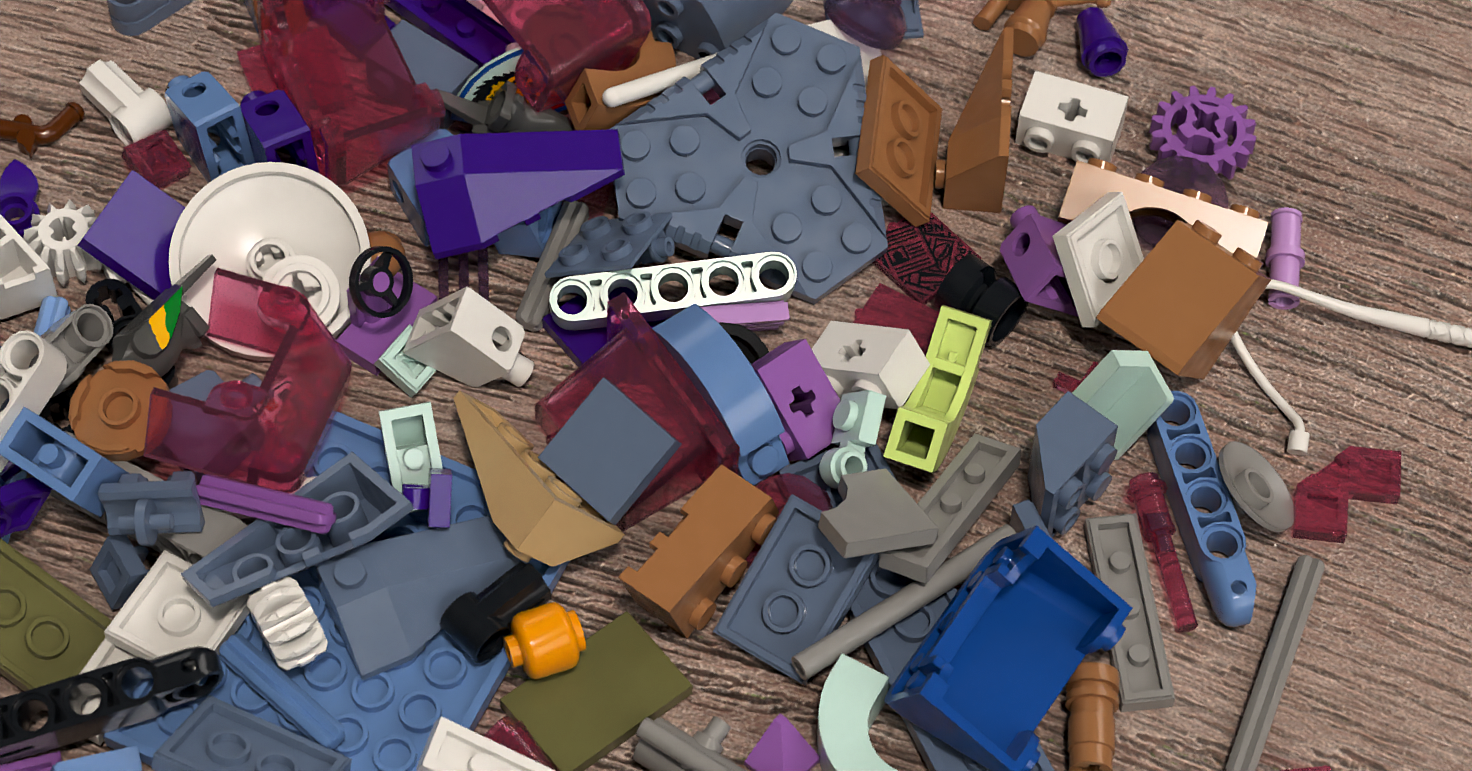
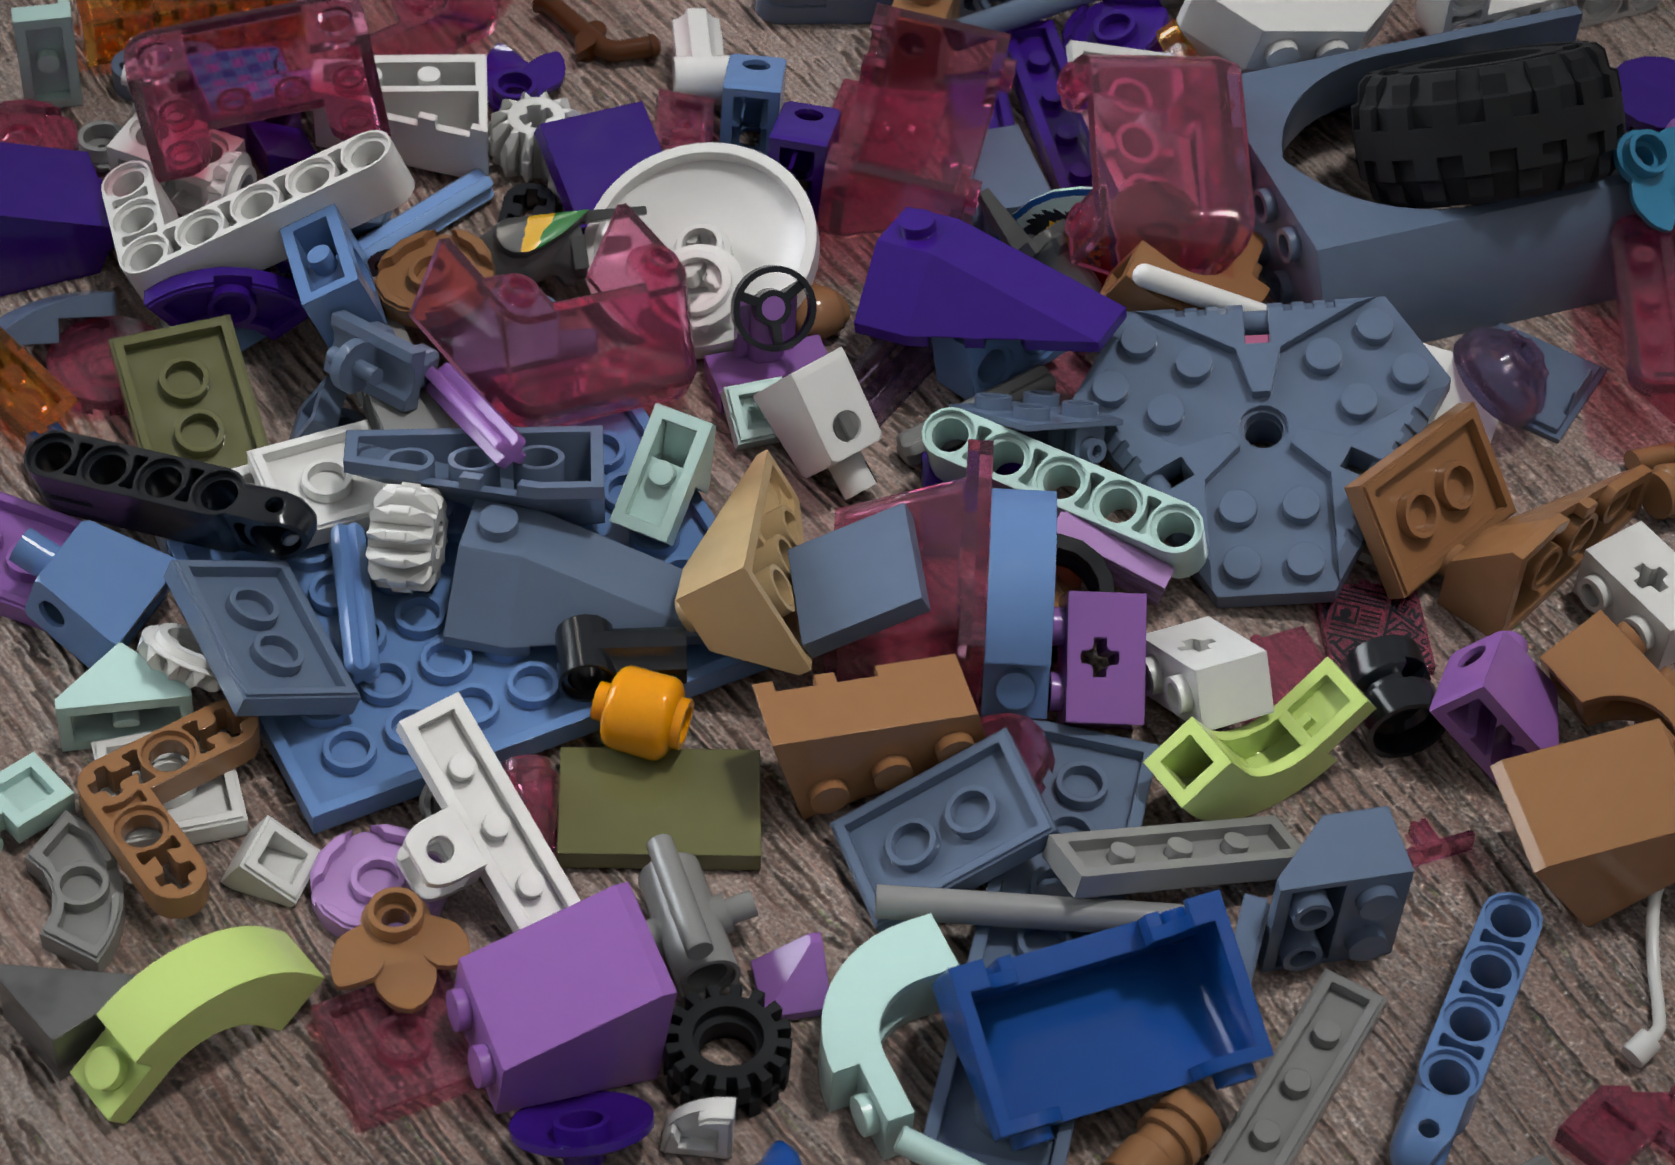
camera: 35 degrees right, 10 degrees down
(78, 350) = (443, 207): light grey piece -> none
(433, 497) = (648, 516): dark purple tile -> none
(856, 427) = (1139, 709): light aqua plate -> none
(875, 516) = (1070, 796): light grey tile -> none
(1098, 254) = (1545, 702): white tile -> none
(1127, 392) = (1459, 863): light aqua panel -> none
(1148, 496) = (1416, 988): clear pink pin -> none
(1256, 487) = (1545, 1051): light grey dish -> none

